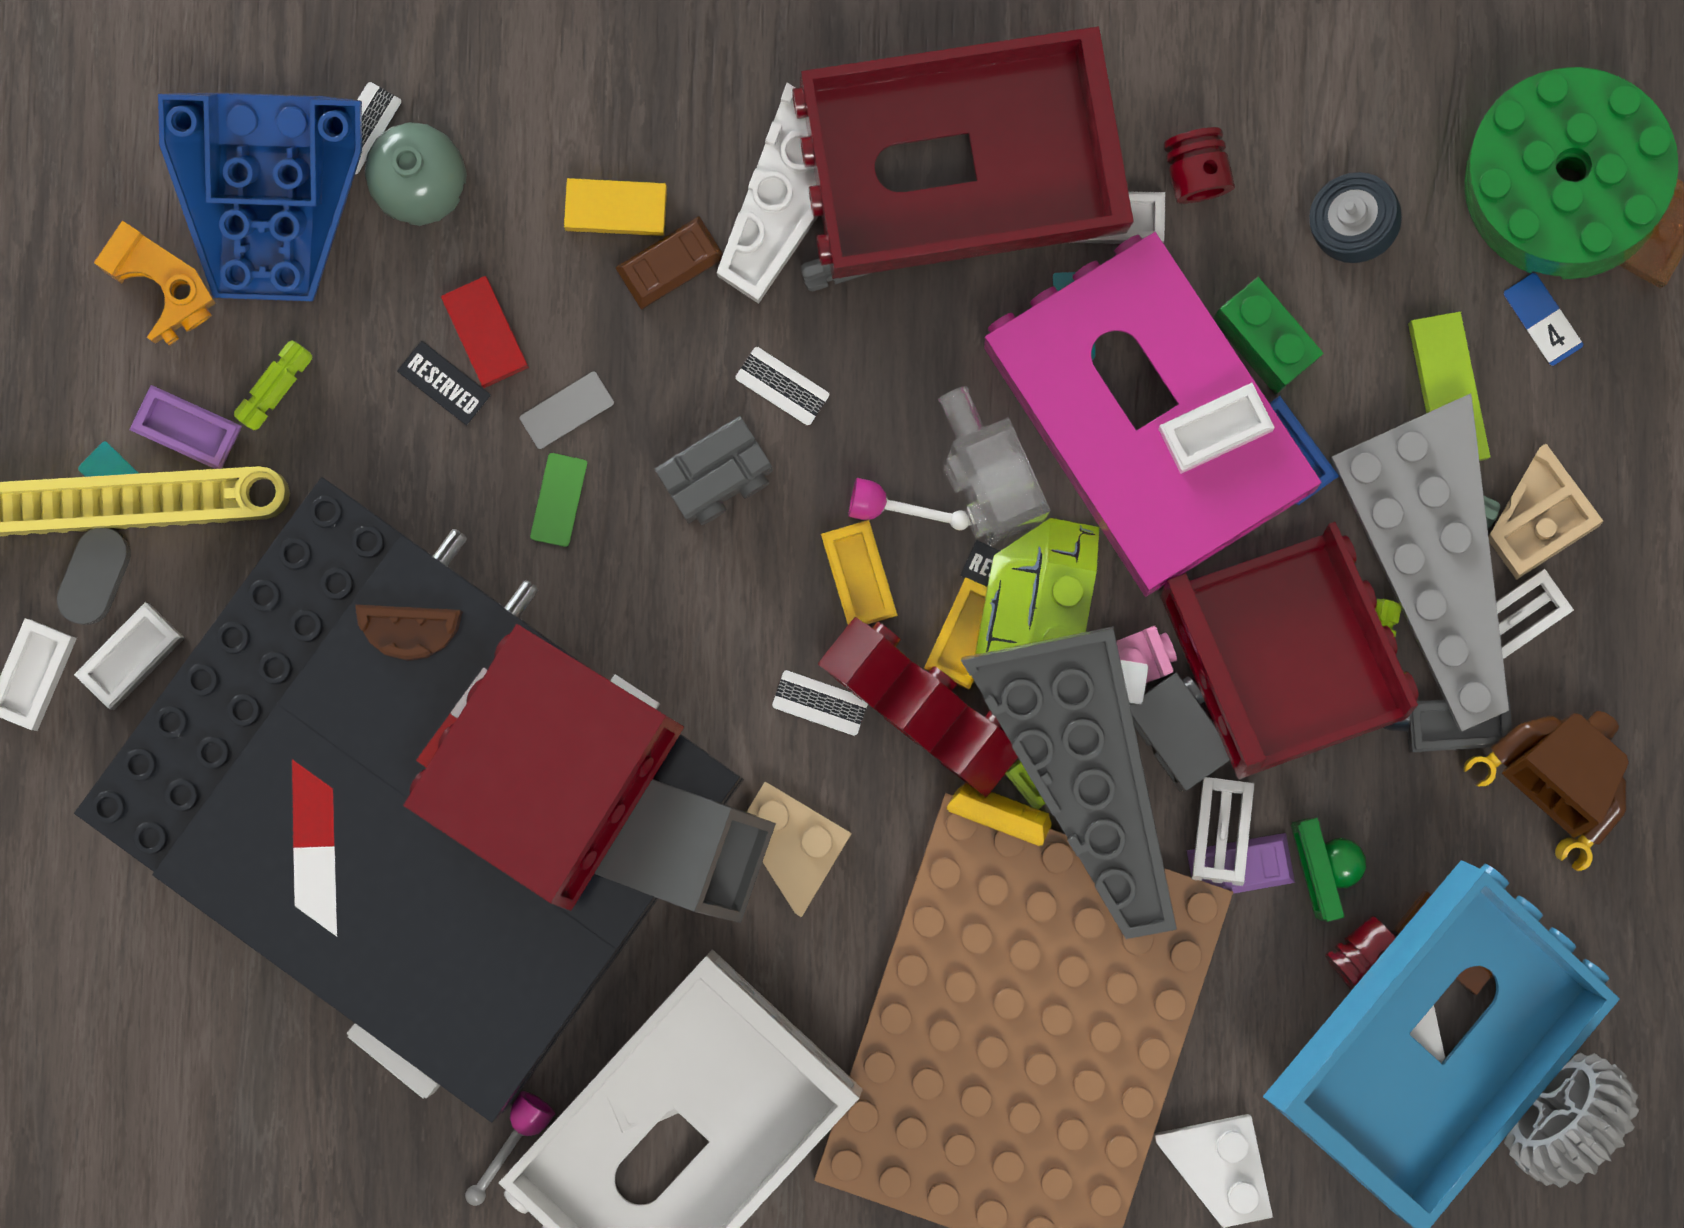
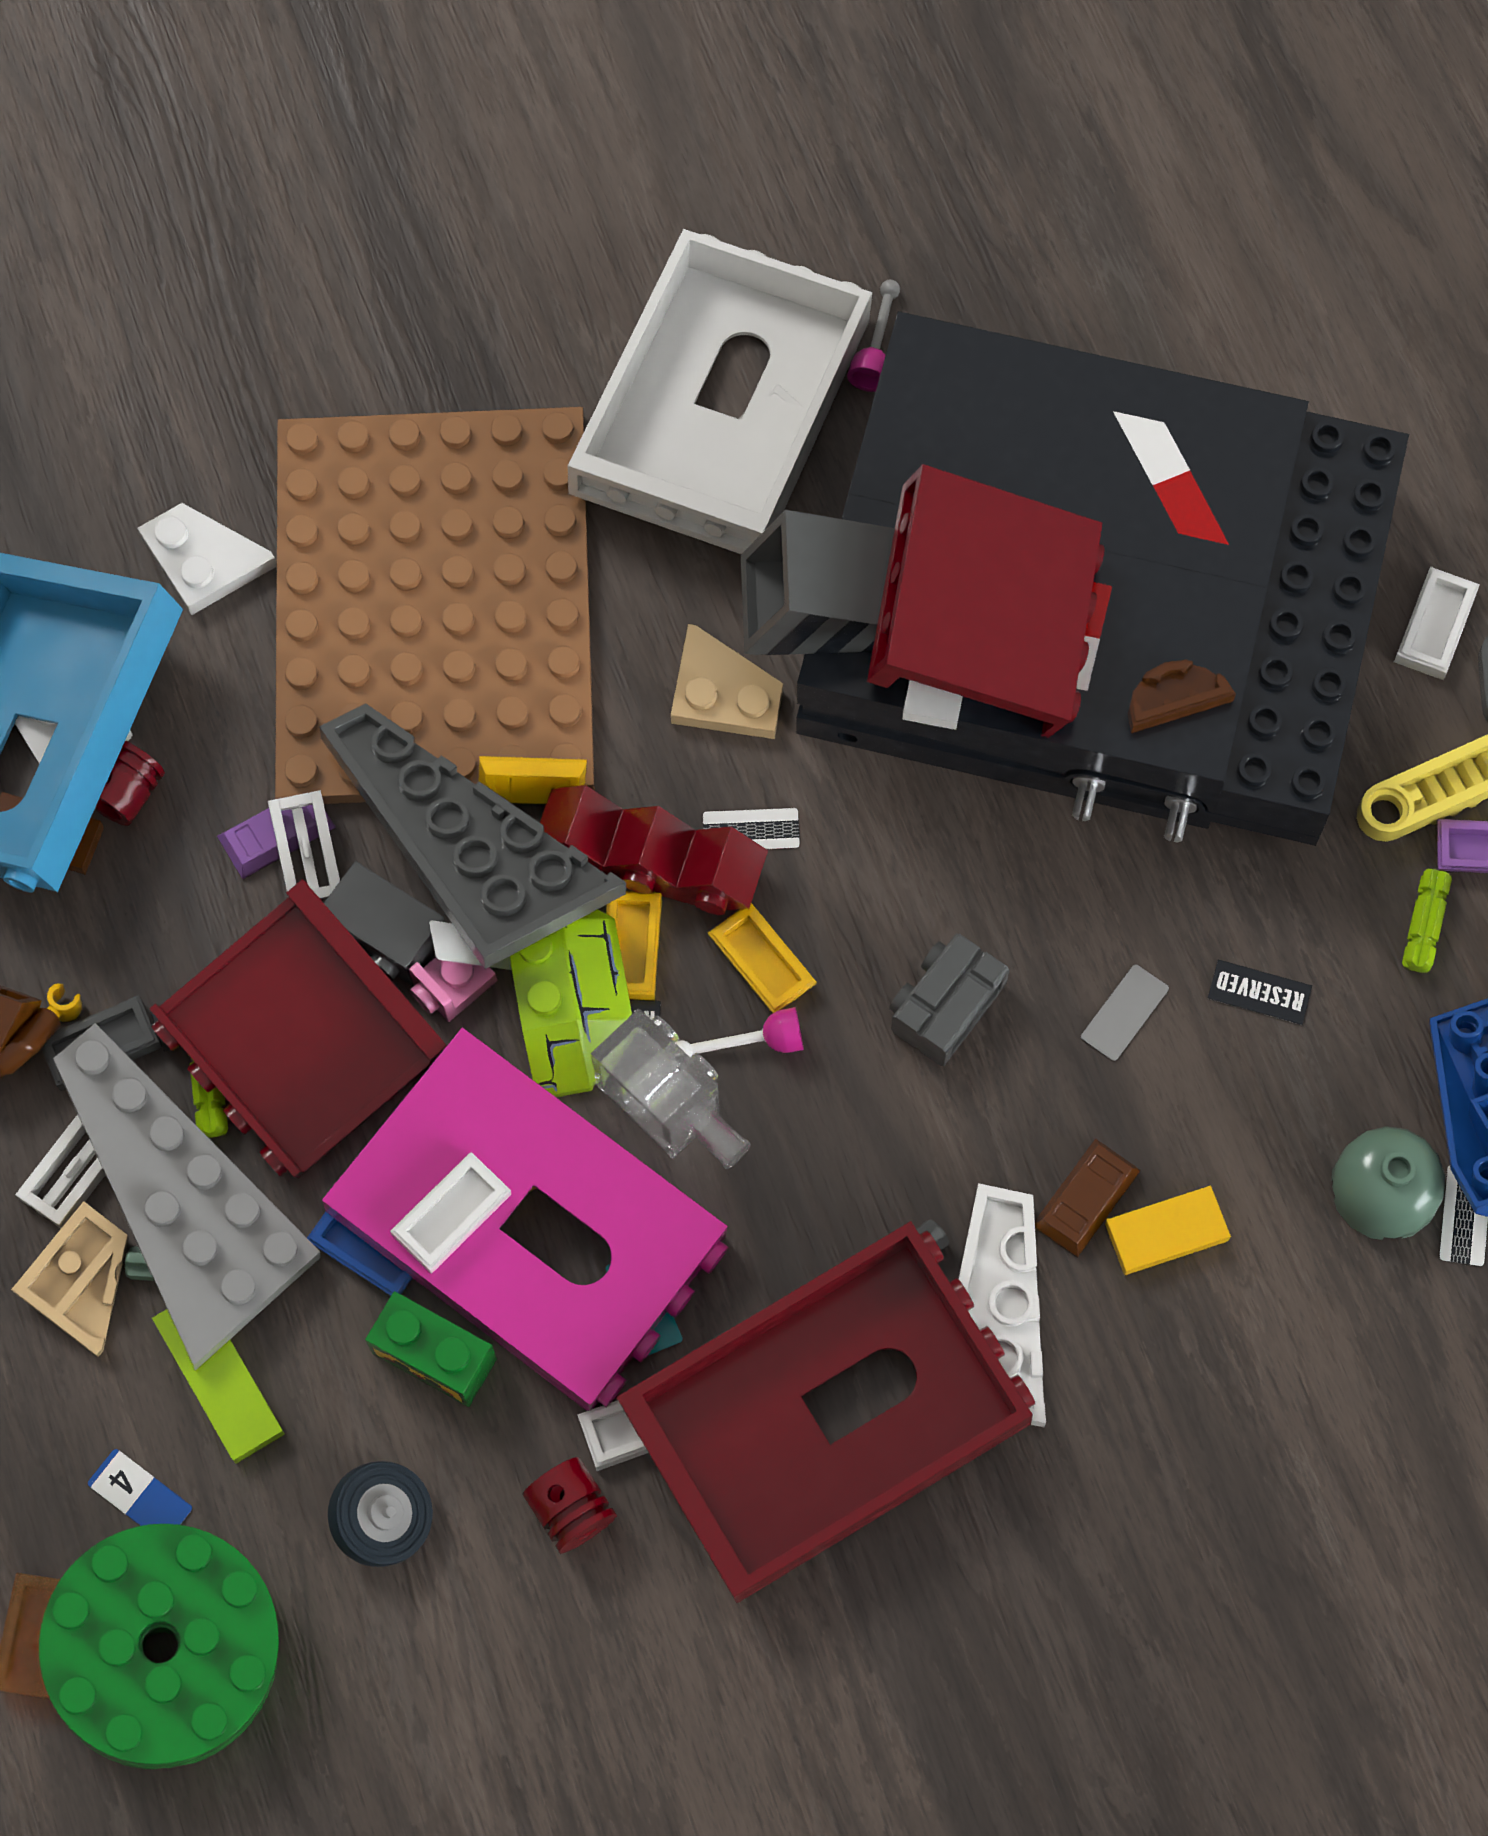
camera: 160 degrees right, 15 degrees down
(484, 332) = (1242, 1053): red tile -> none
(558, 499) = (1093, 923): bright green sticker -> none
(782, 386) = (917, 1119): sticker -> none
(1327, 867) = (183, 856): green tile -> none

